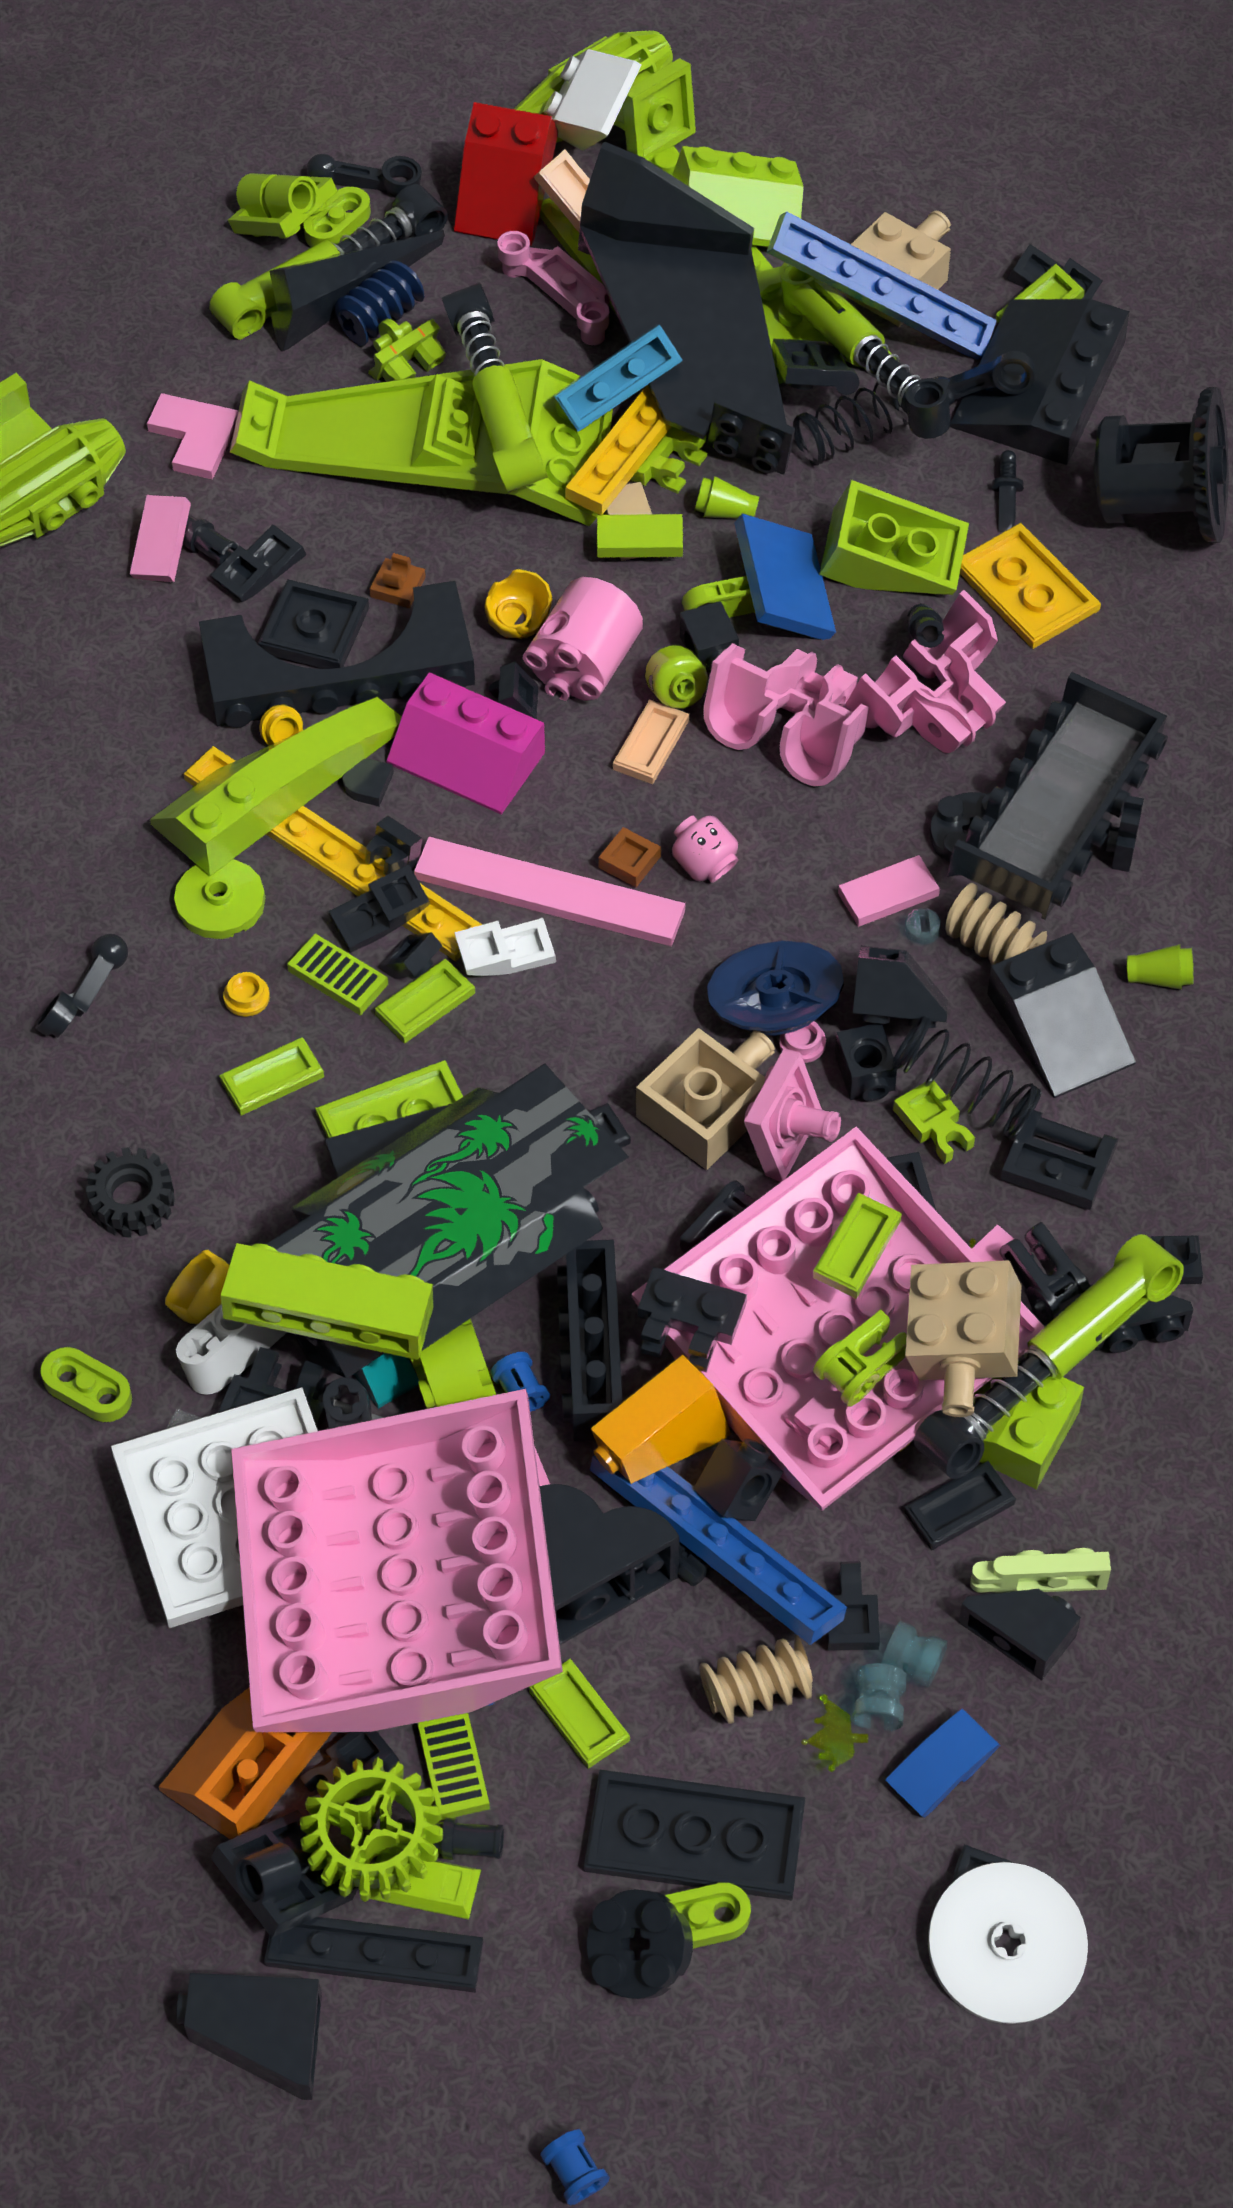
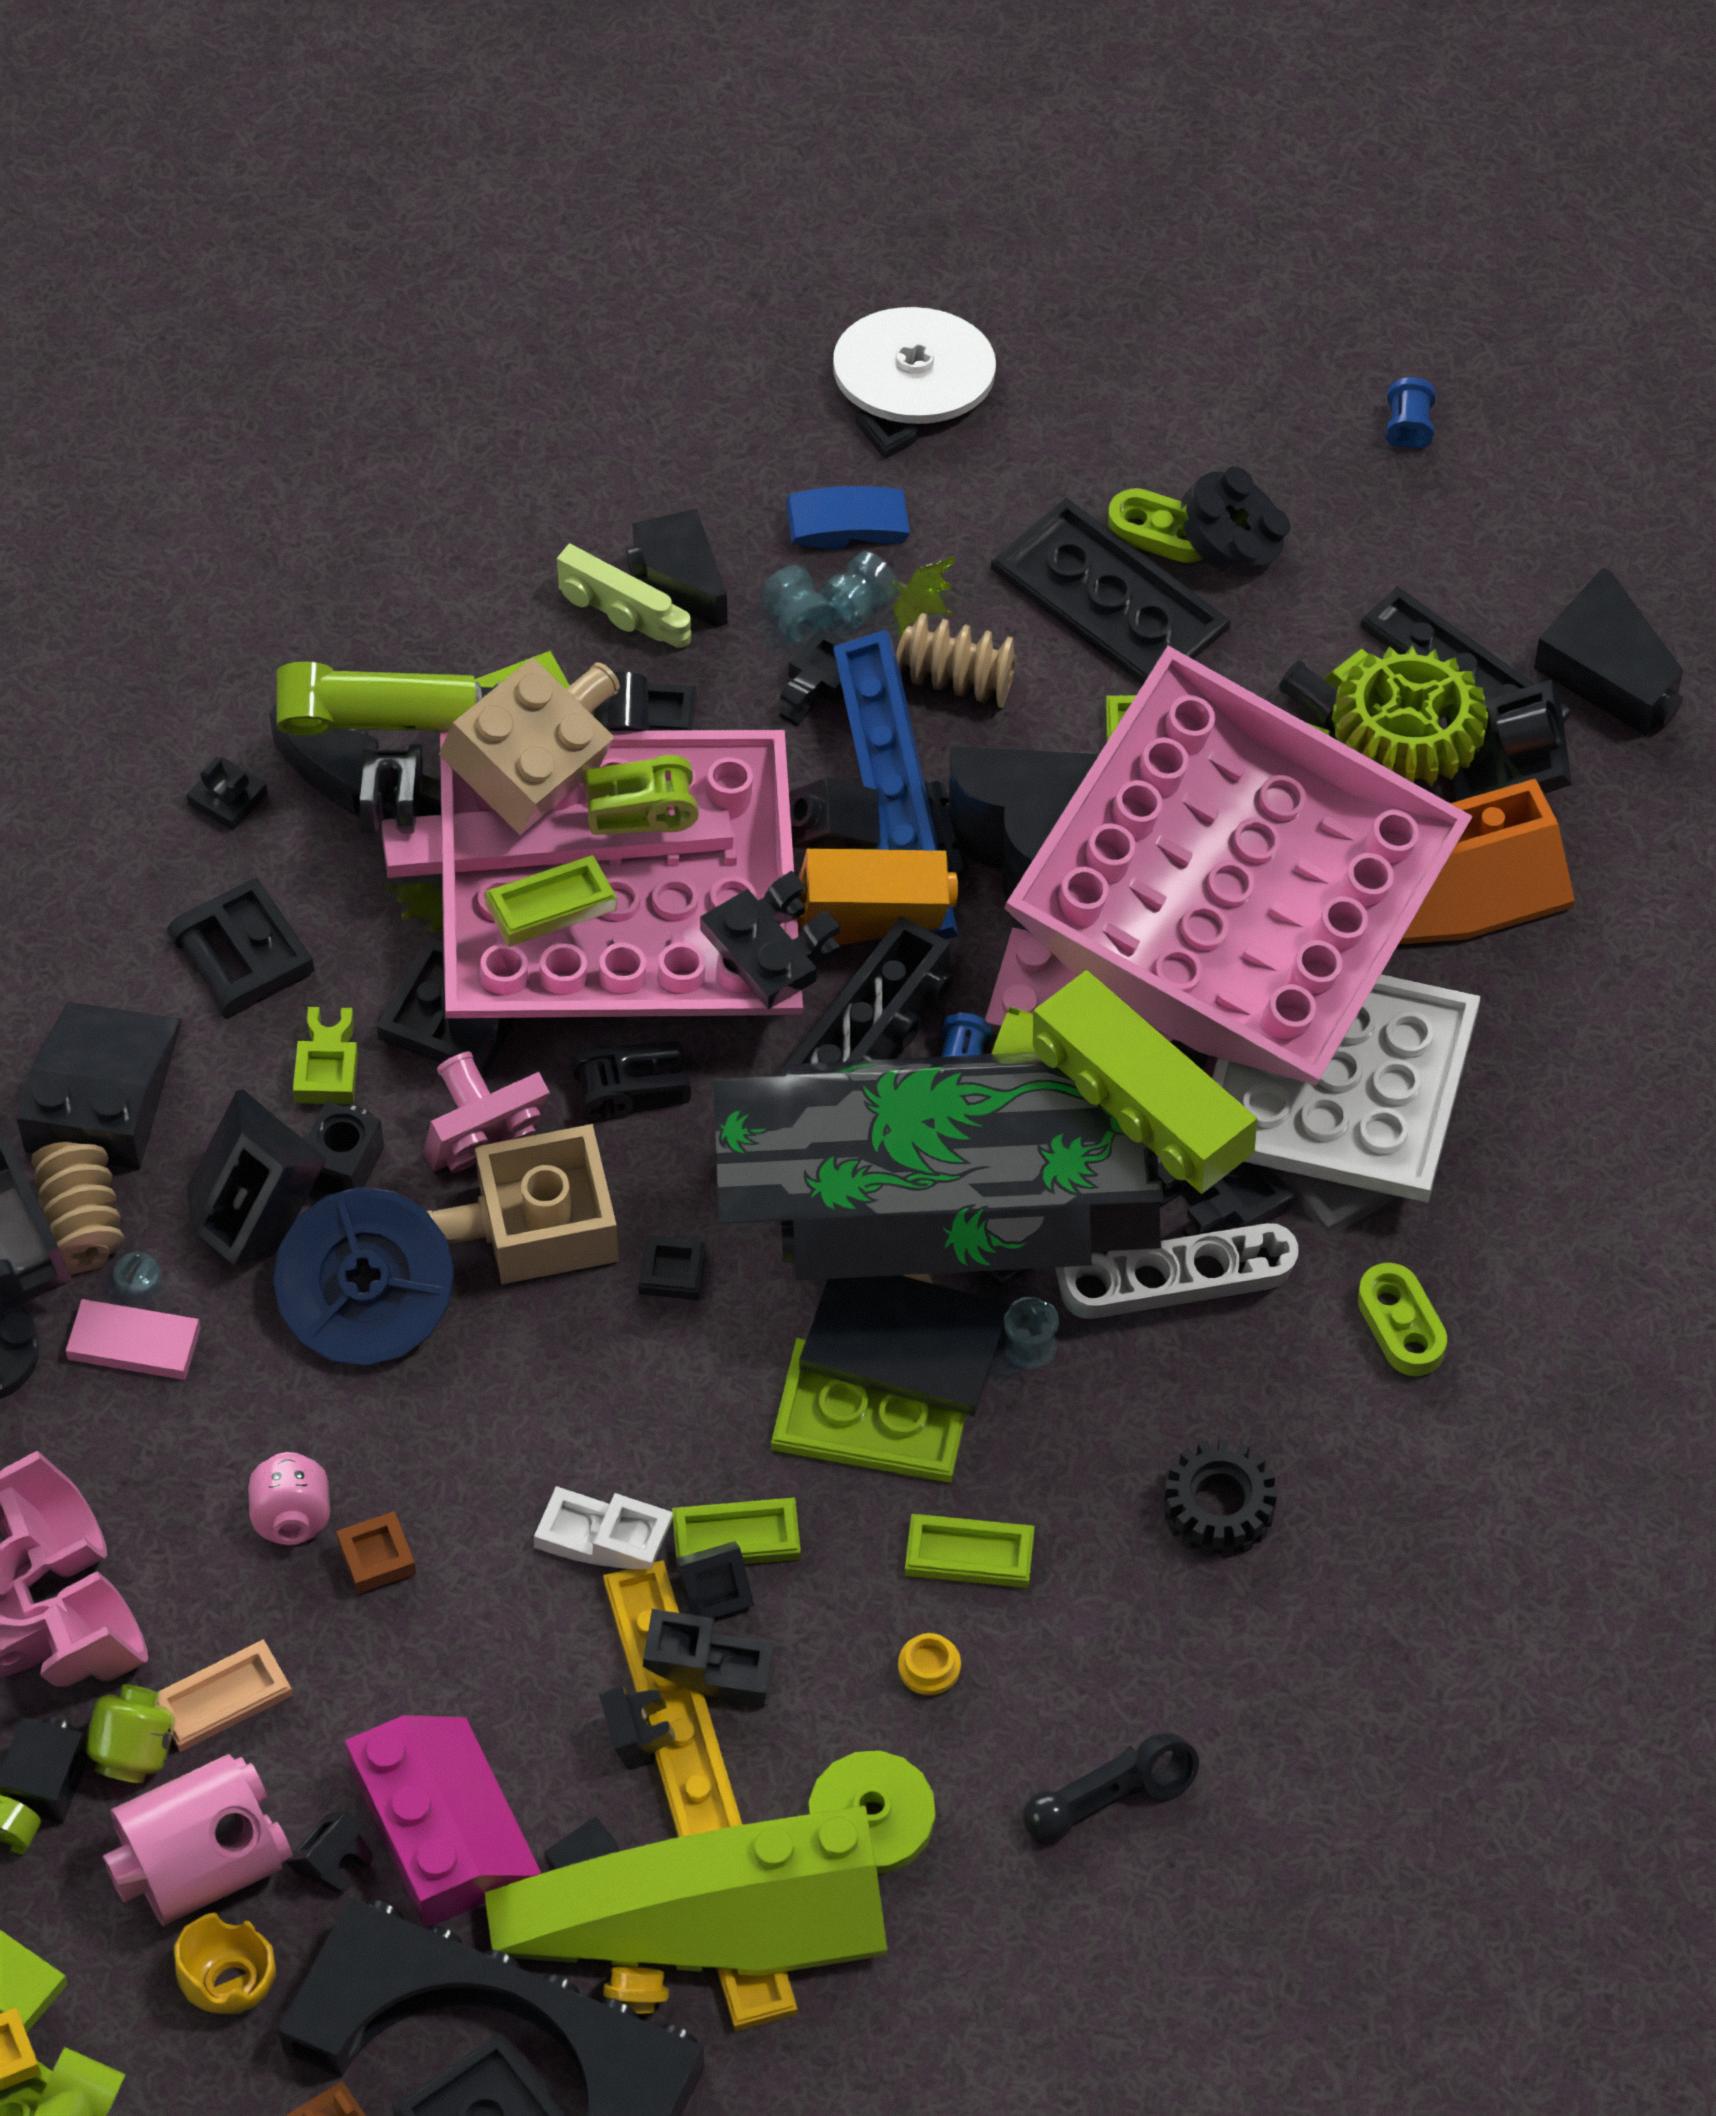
camera: 145 degrees left, 0 degrees up
(198, 1287) = (1220, 1314): yellow hair -> none
(337, 974) = (808, 1627): lime tile -> none
(550, 891) = (494, 1577): bright pink tile -> none
(908, 1054) = (224, 1030): black piece -> none

